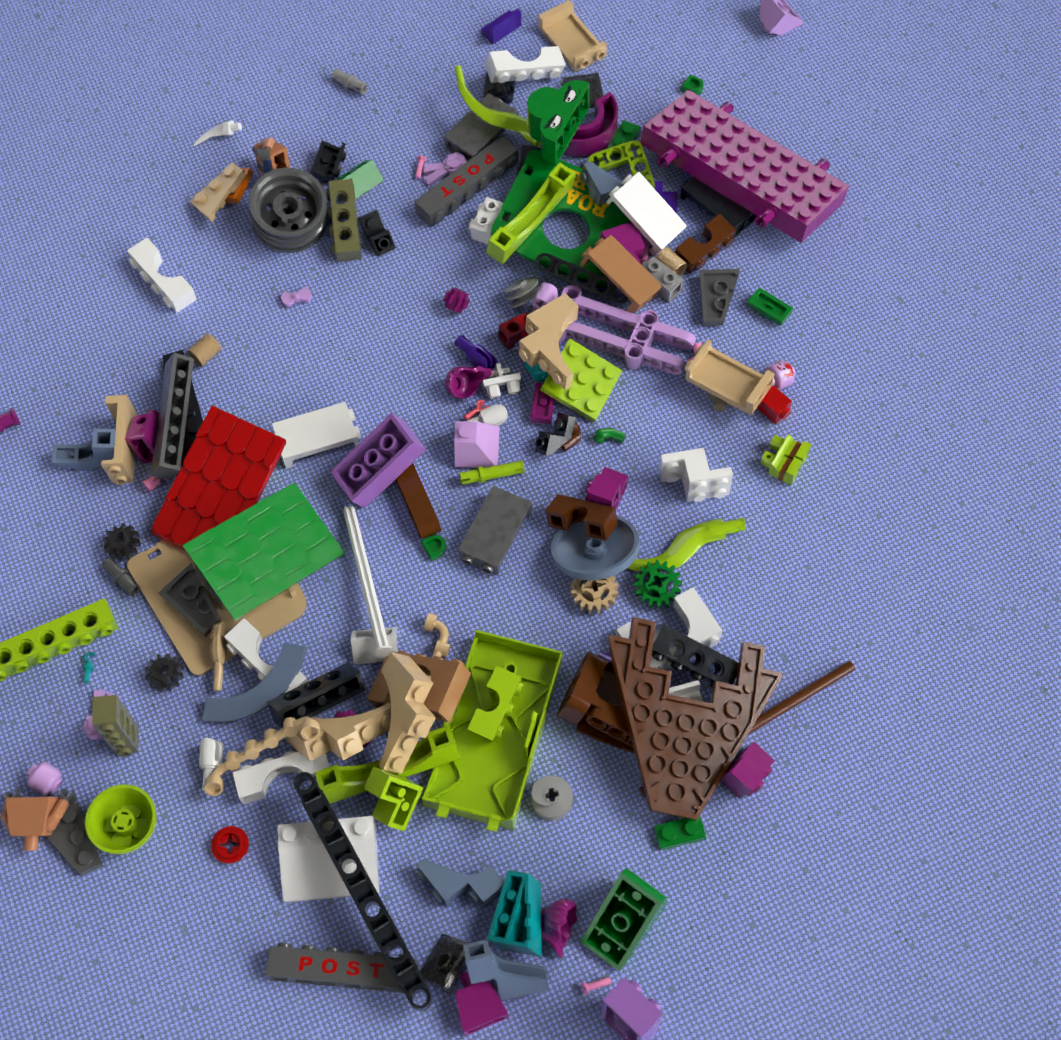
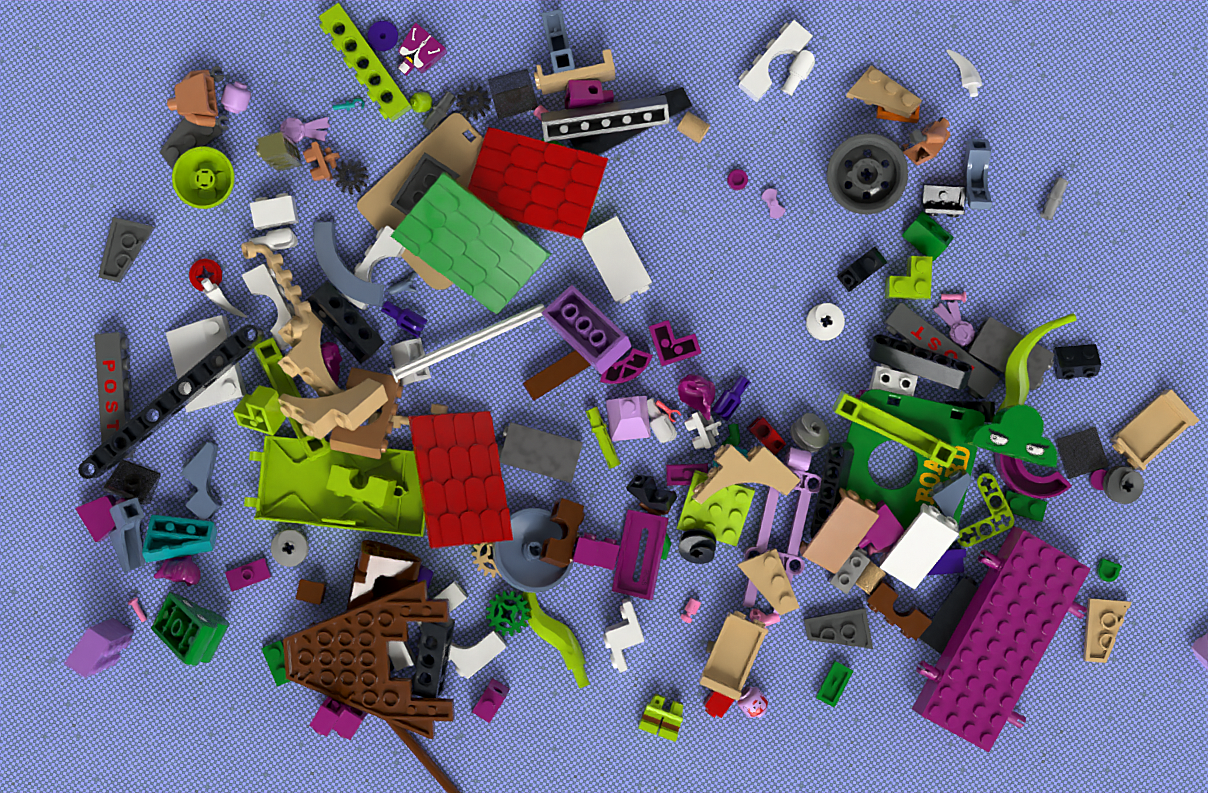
camera: 75 degrees right, 25 degrees up
(25, 619) = (382, 36): none -> dark purple piece
(52, 585) = (419, 51): none -> magenta torso
(108, 592) = (421, 102): none -> lime piece
(125, 504) = (512, 94): none -> clear smoke slope
(141, 697) = (316, 153): none -> nougat hips
(175, 933) = (122, 248): none -> dark grey wing
(176, 257) = (798, 71): none -> white arm
(180, 755) = (274, 212): none -> white brick
(219, 653) = (375, 222): tan piece -> none
(258, 833) = (214, 293): none -> white bar
(265, 323) = (737, 179): none -> magenta tile
(292, 637) = (403, 286): none -> sand blue bar
(310, 134) = (976, 174): none -> sand blue arch
(324, 644) = (405, 318): none -> dark purple arm
(344, 191) = (896, 216): olive brick -> none
(398, 191) = (915, 284): none -> lime brick
(414, 397) = (669, 349): none -> magenta brick
(418, 267) = (835, 317): none -> white piece
(427, 433) = (626, 369): none -> magenta brick
(434, 546) = (518, 397): green tile -> none
(456, 300) = (790, 367): magenta gear -> none
(473, 192) = (920, 361): none -> black beam
(502, 26) = (1158, 349): dark purple panel -> none
(504, 67) = (1087, 365): white arch -> none
(510, 599) = (460, 479): none -> red piece
(514, 359) = (734, 436): none -> green arm
(575, 851) = (248, 574): none -> magenta plate
(592, 433) = (632, 533): none -> magenta piece
(604, 780) = (311, 591): none -> reddish brown panel
(609, 81) = (1096, 479): none -> magenta tile
(616, 400) = (697, 546): none -> black piece
(617, 62) = (1123, 484): none -> dark grey piece
(655, 338) = (771, 580): none -> tan wing
(679, 418) = (691, 608): none -> bright pink piece
(744, 94) = (1102, 626): none -> tan wing
(751, 615) = (490, 700): none -> magenta torso

